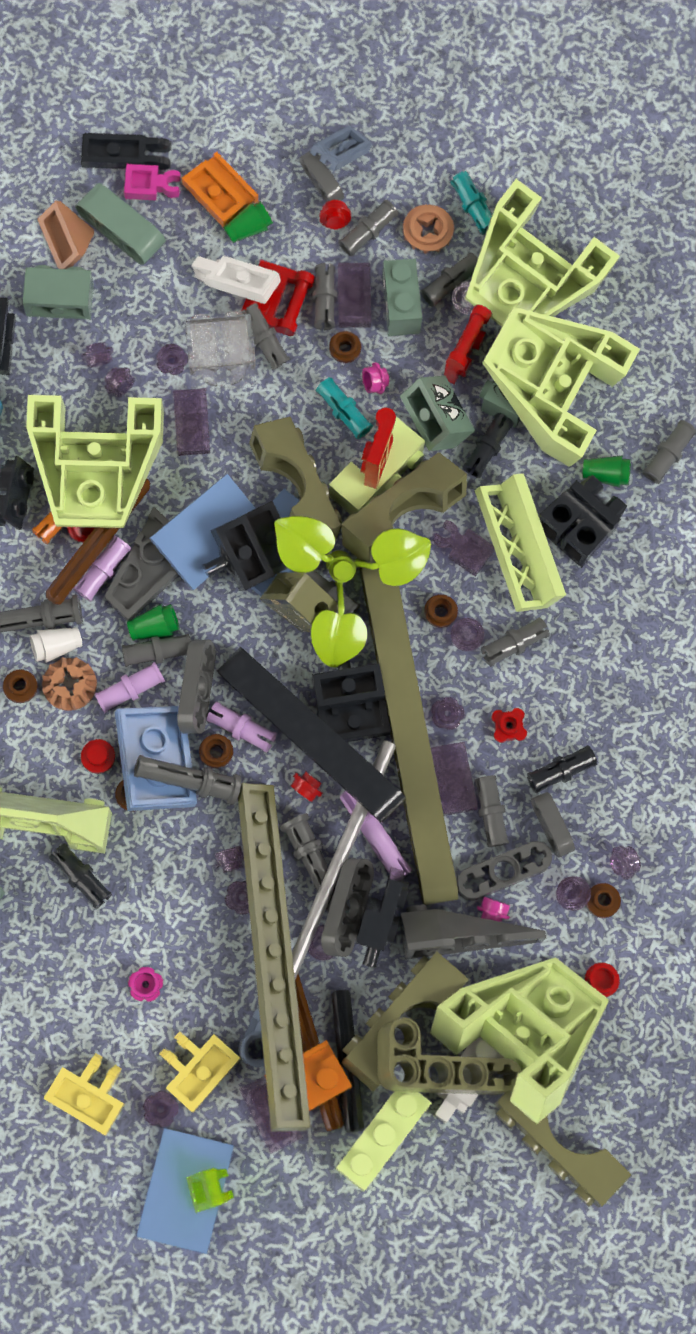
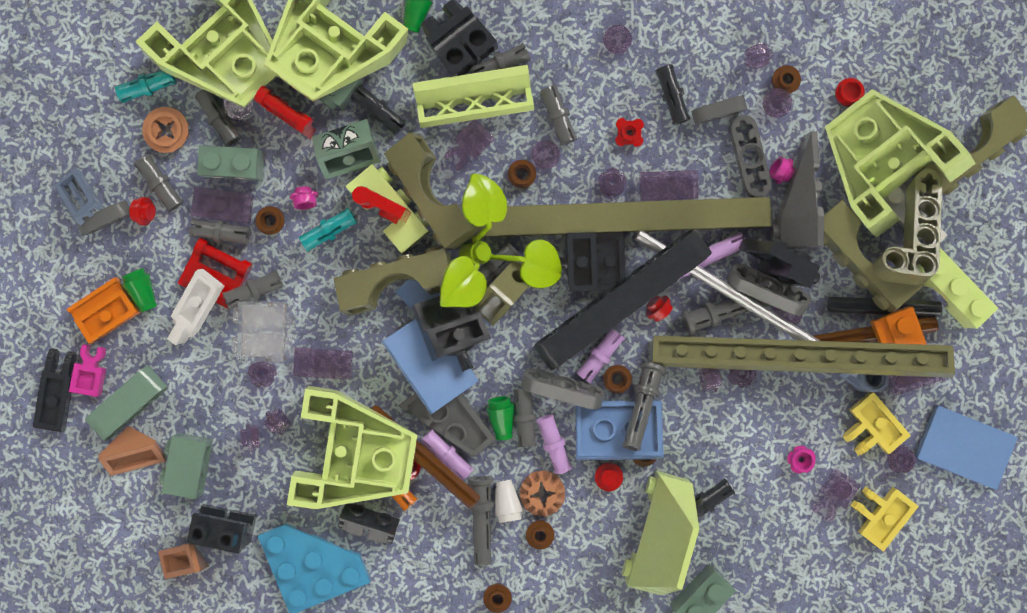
camera: 80 degrees left, 15 degrees up
(111, 1036) = (838, 490): none -> clear purple plate
(206, 1189) = (977, 432): clear neon green tile -> none
(491, 811) = (700, 158): dark grey pin -> none
(568, 574) = (504, 60): none -> dark grey pin
(615, 697) = (617, 39): none -> clear purple plate

